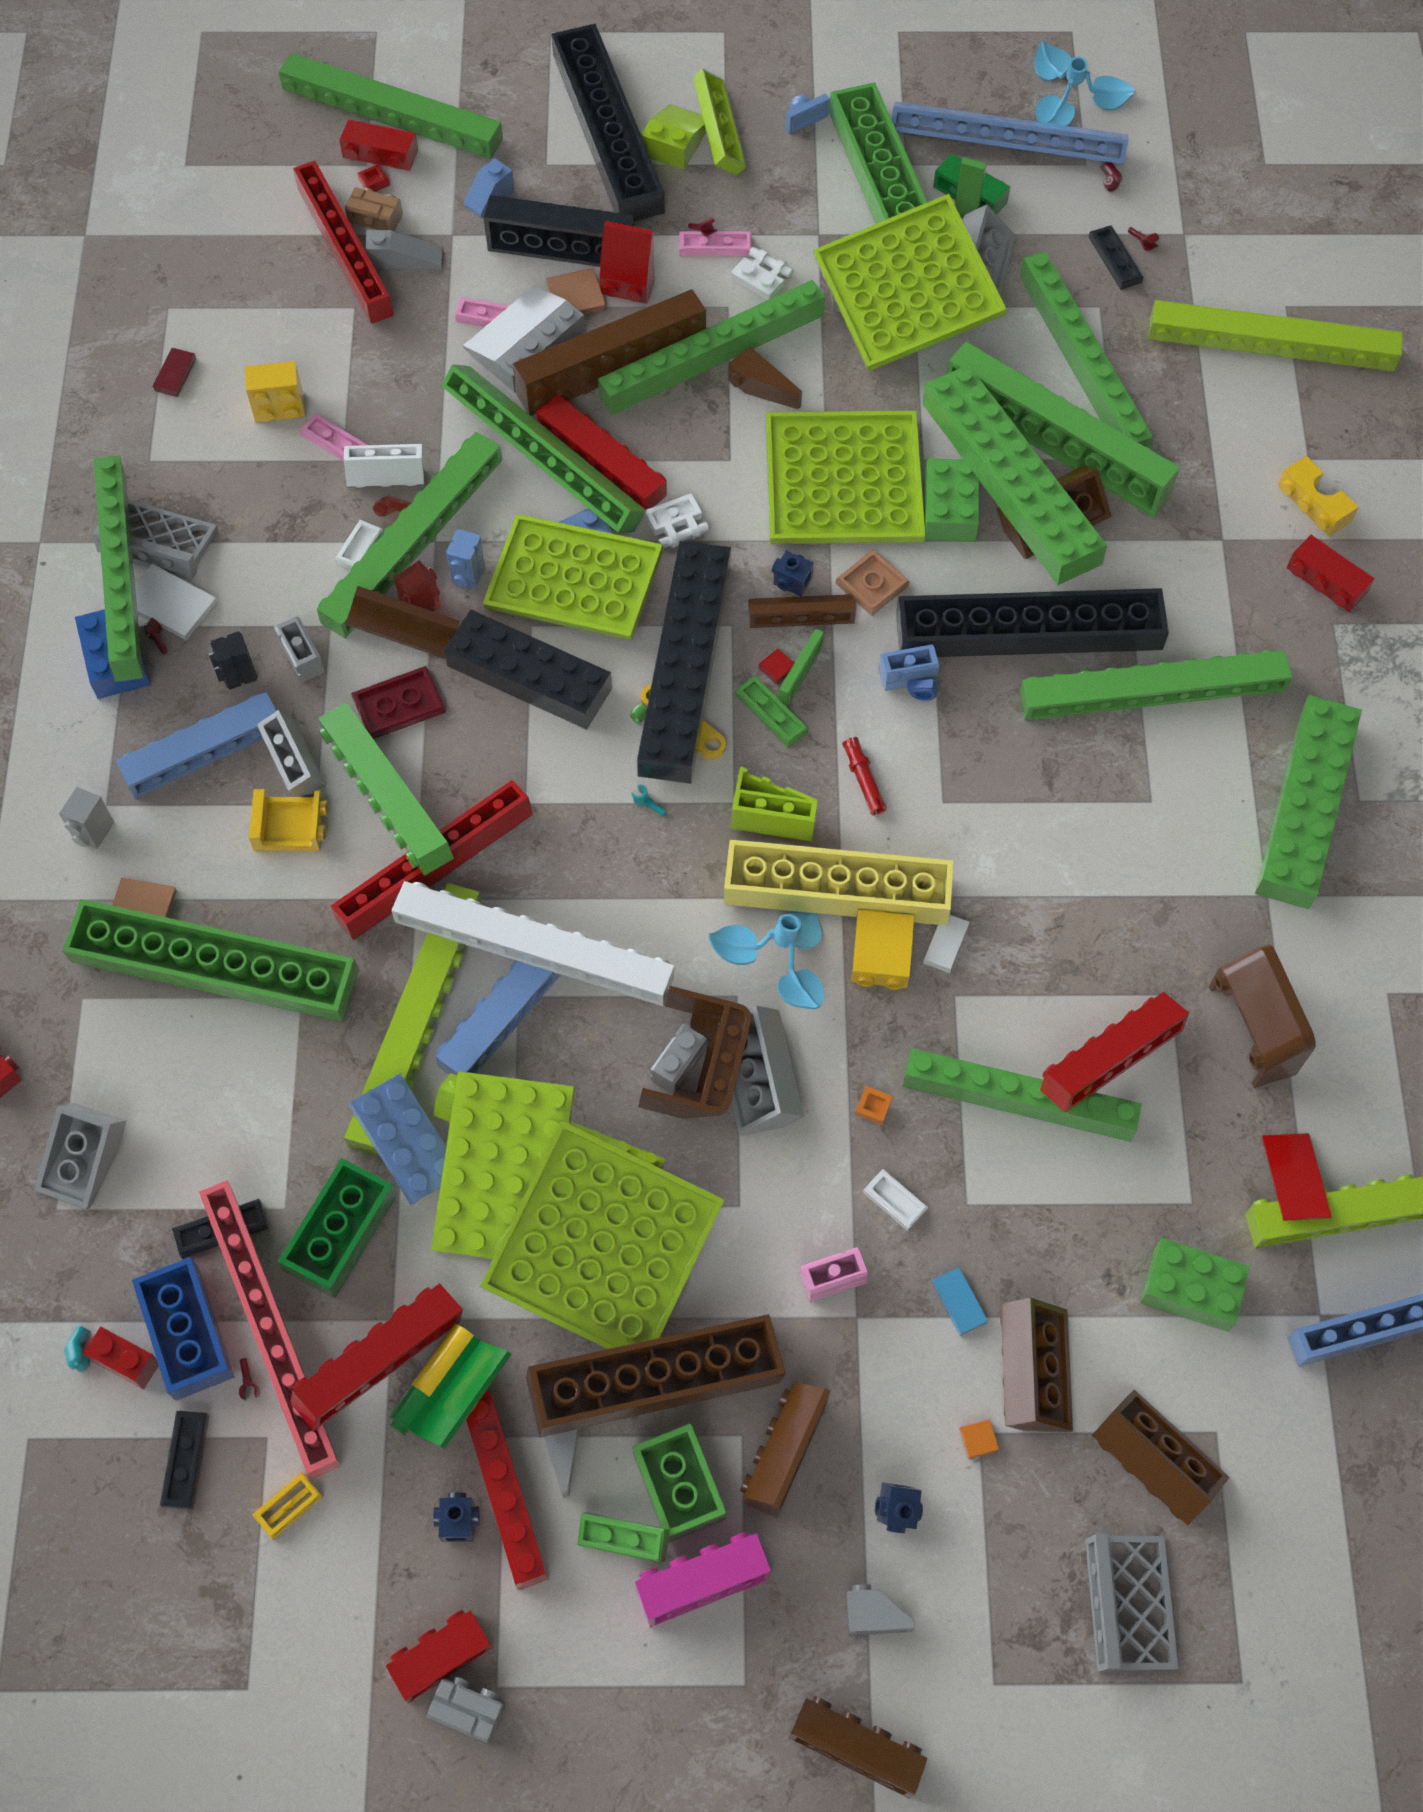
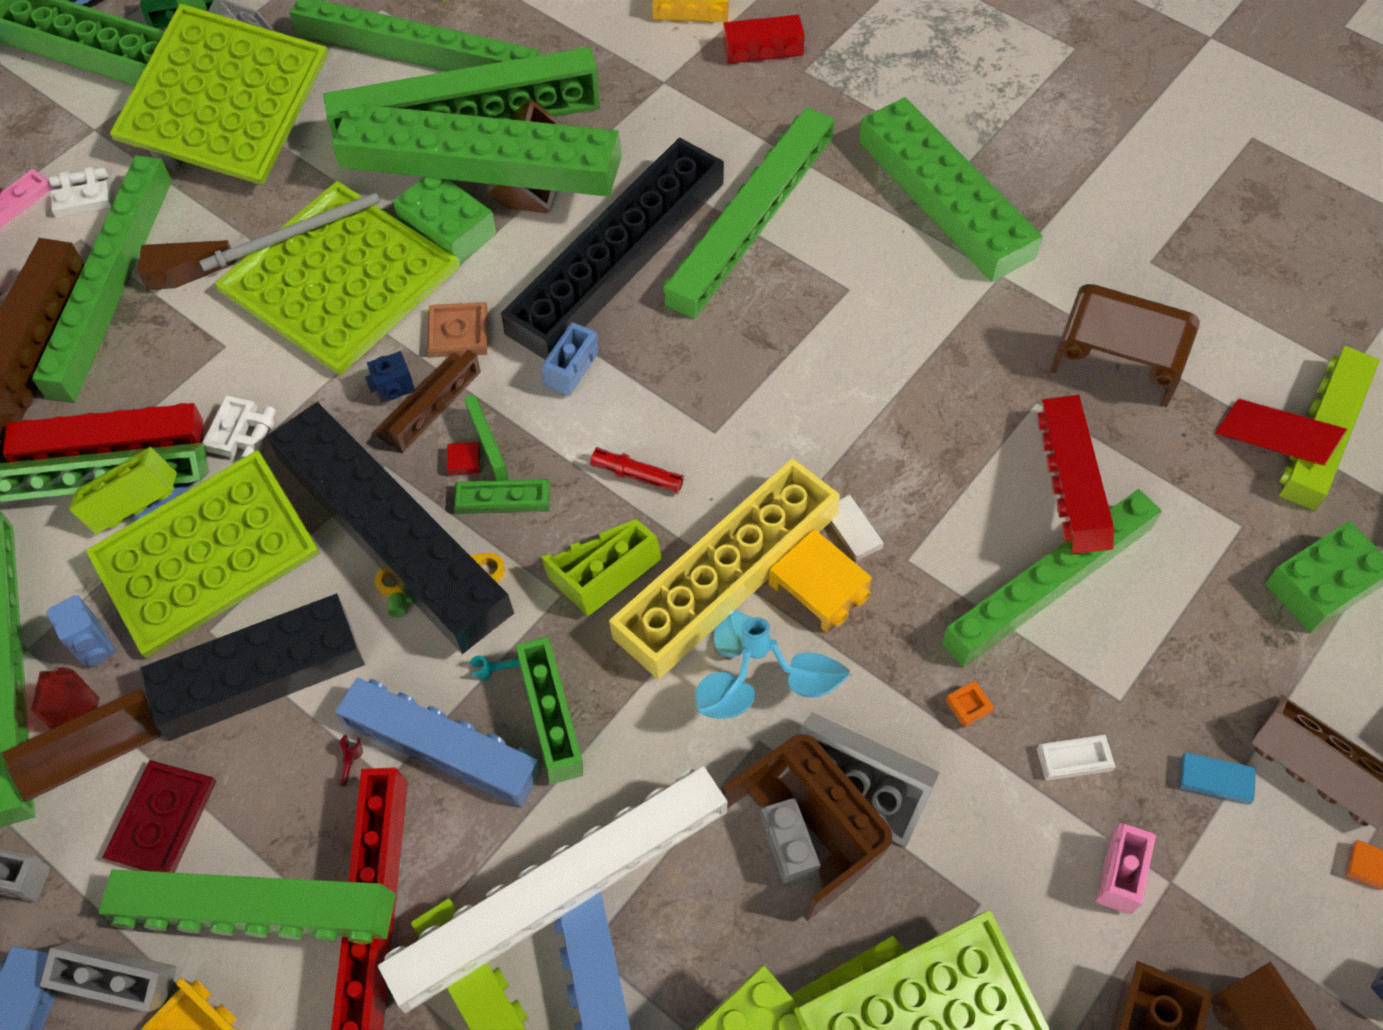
camera: 50 degrees left, 5 degrees down
(522, 769) = (350, 755): none -> dark red hand
(570, 498) = (123, 491): none -> lime brick
(571, 810) = (439, 741): none -> medium blue brick
(643, 854) = (549, 711): none -> bright green brick
(788, 400) = (224, 257): none -> light grey bar
(923, 689) = (599, 365): blue tile -> none

